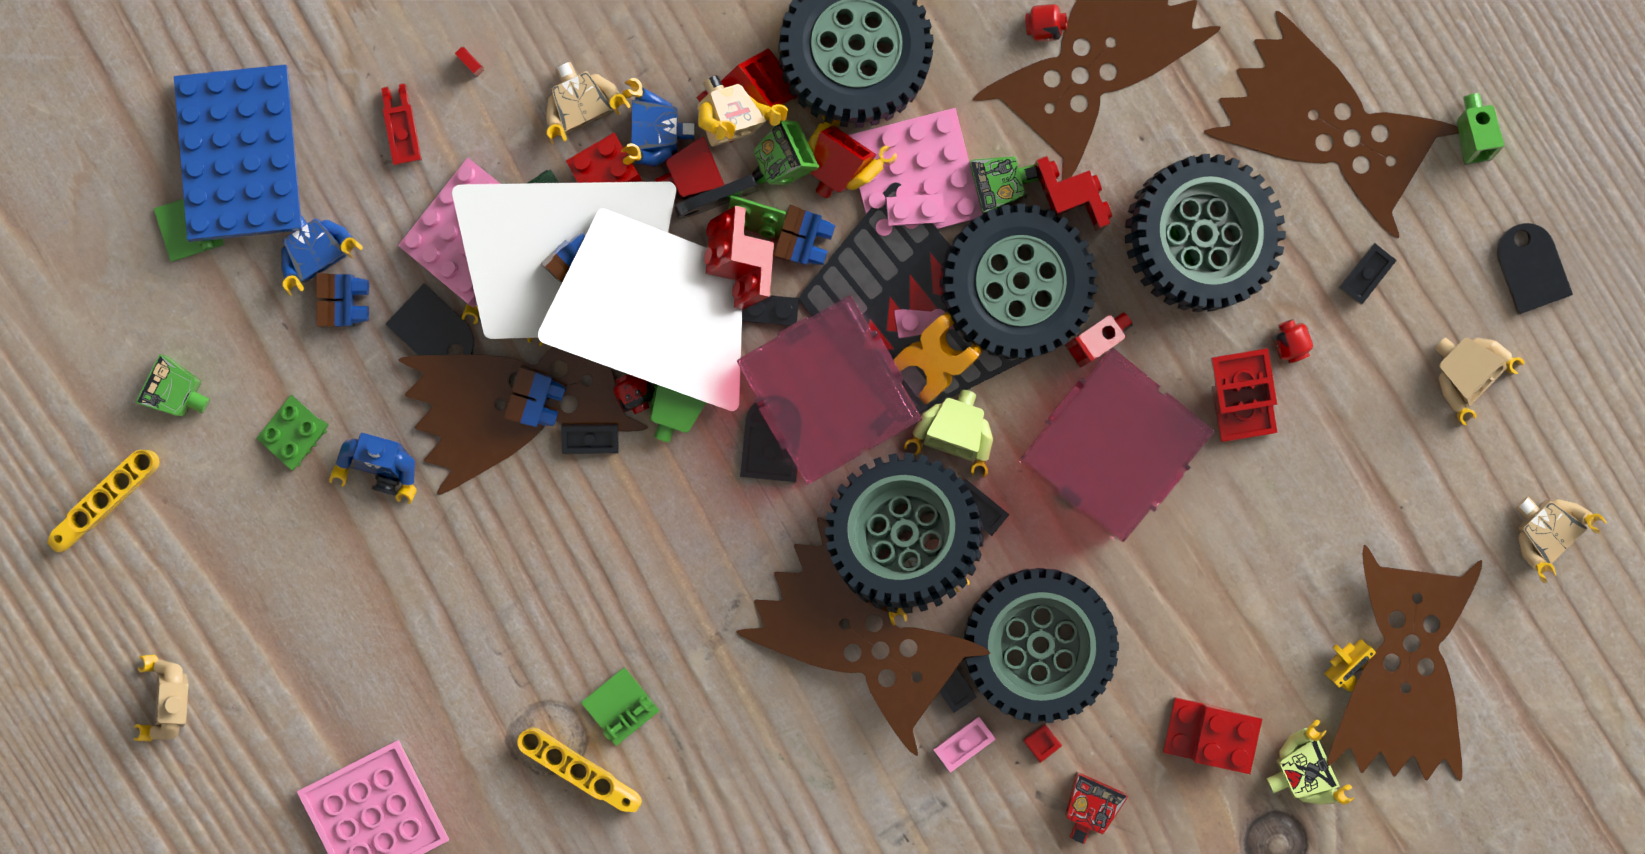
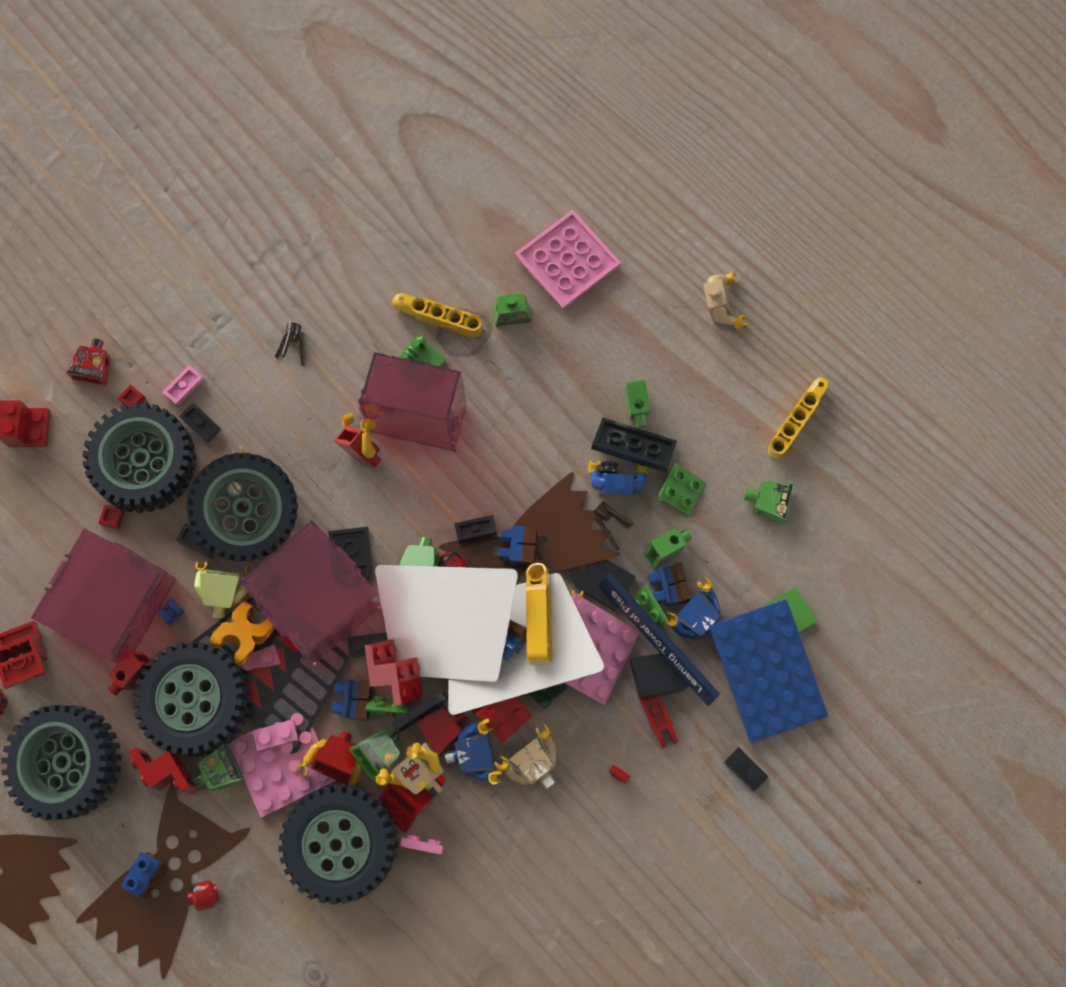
camera: 170 degrees right, 15 degrees down
(301, 32) = (746, 769): none -> black plate
(325, 582) = (634, 394): none -> bright green torso
(332, 352) = (666, 547): none -> bright green torso
(342, 510) = (634, 445): none -> black plate
(373, 226) = (659, 639): none -> dark blue tile
(378, 270) = (649, 604): none -> bright green hinge
(384, 180) = (655, 676): none -> black tile
(404, 420) = (605, 512): none -> dark brown plant
(471, 752) = (511, 309): none -> bright green torso
(524, 283) = (538, 614): none -> yellow piece
(631, 625) = (414, 401): none -> clear pink piece
(731, 595) = (359, 443): none -> torso
(736, 21) = (413, 842): none -> bright pink plate
(793, 789) = (291, 334): none -> dark brown plant
(809, 630) = (300, 435): reddish brown piece -> none
(1027, 417) = (175, 611): none -> blue wheel
(1096, 571) = (111, 516): none -> red tile
(1120, 66) = (141, 874): none -> blue hips

